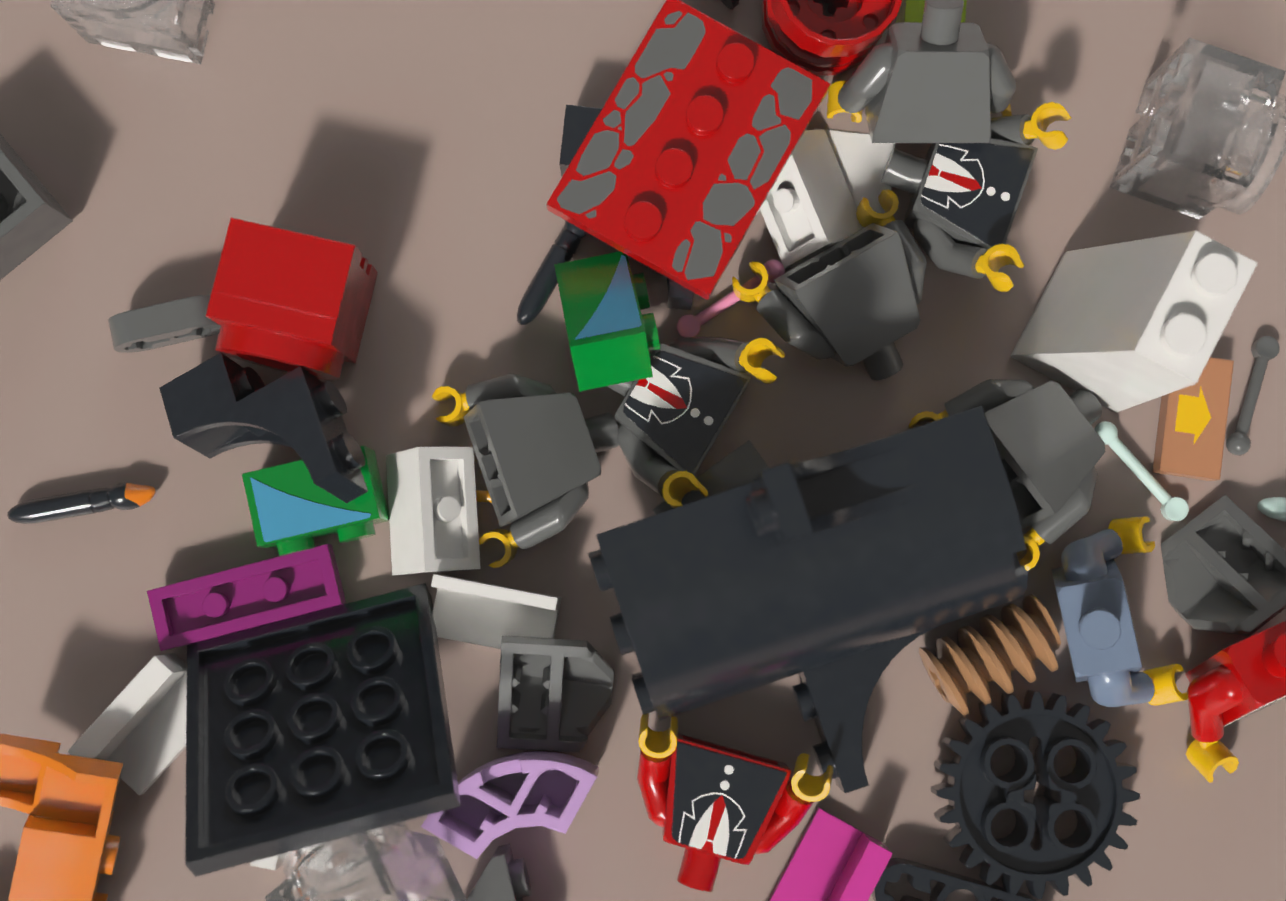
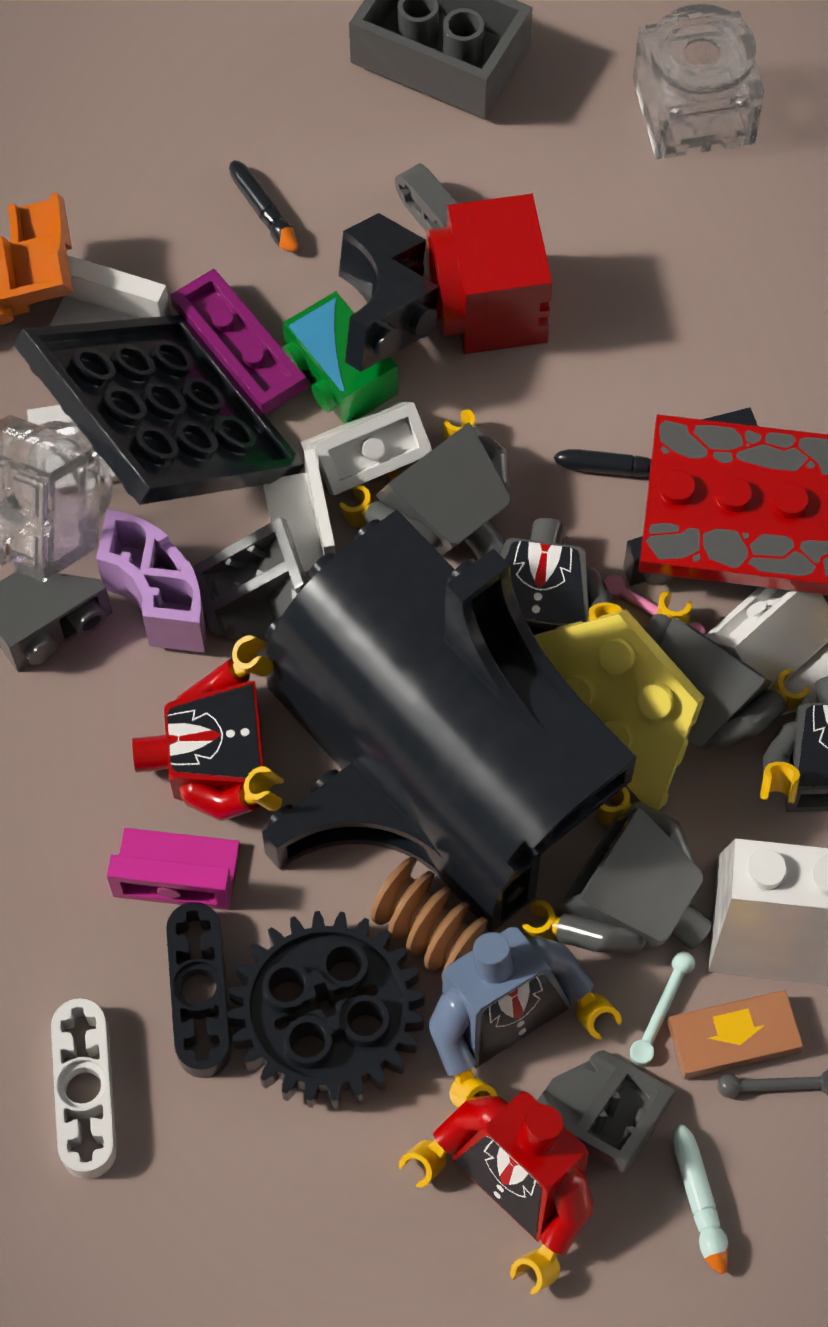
camera: 70 degrees right, 20 degrees down
(605, 320) = (582, 499): green brick -> none
(838, 382) = (632, 691): none -> light yellow wing

